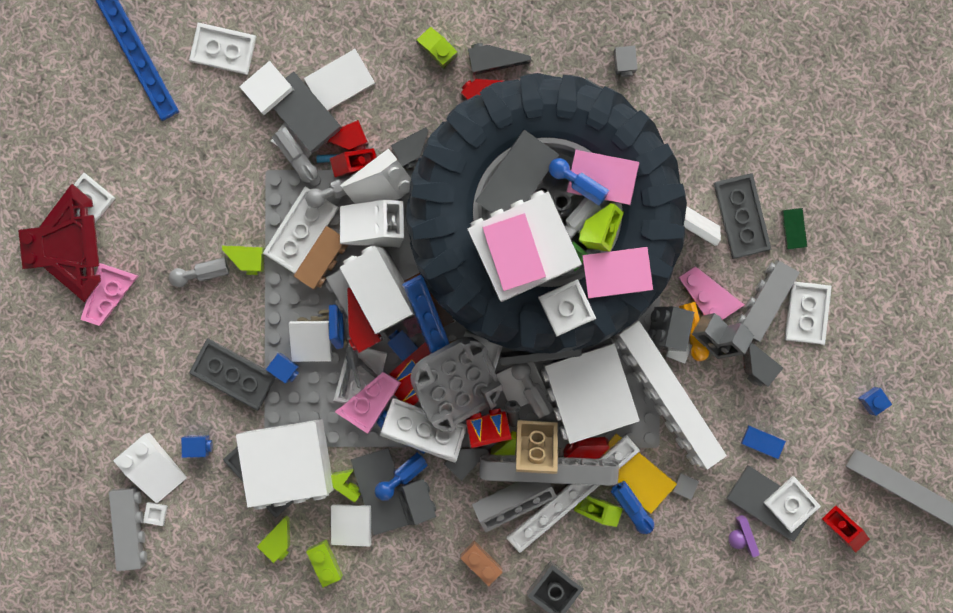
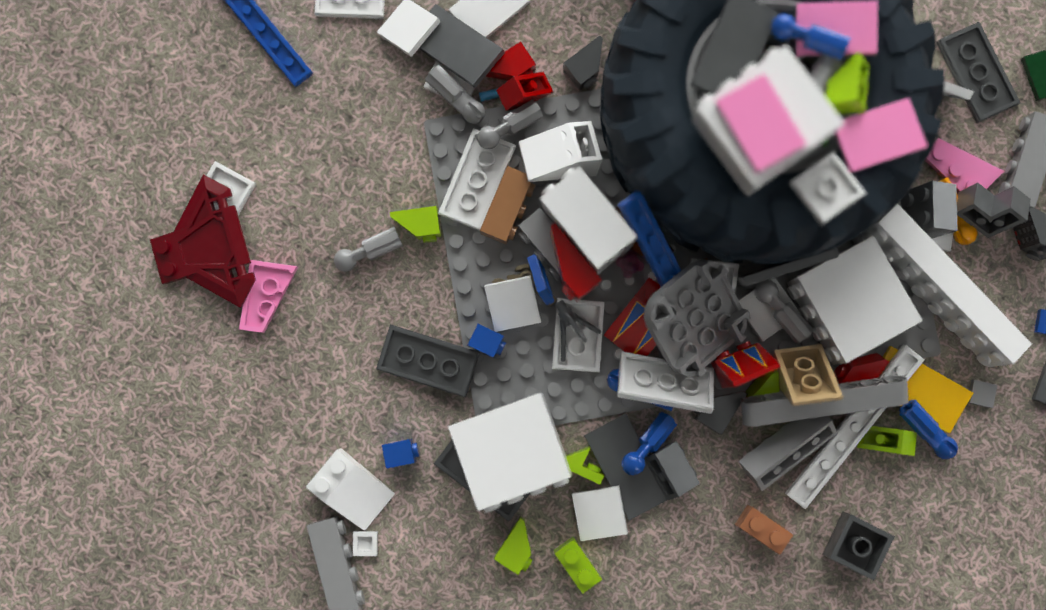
camera: 15 degrees left, 5 degrees down
(367, 405) = (596, 362): bright pink wing -> none
(378, 180) = (559, 101): white slope -> none
(402, 344) = (620, 287): blue brick -> none
(512, 409) = (765, 339): dark grey pin -> none

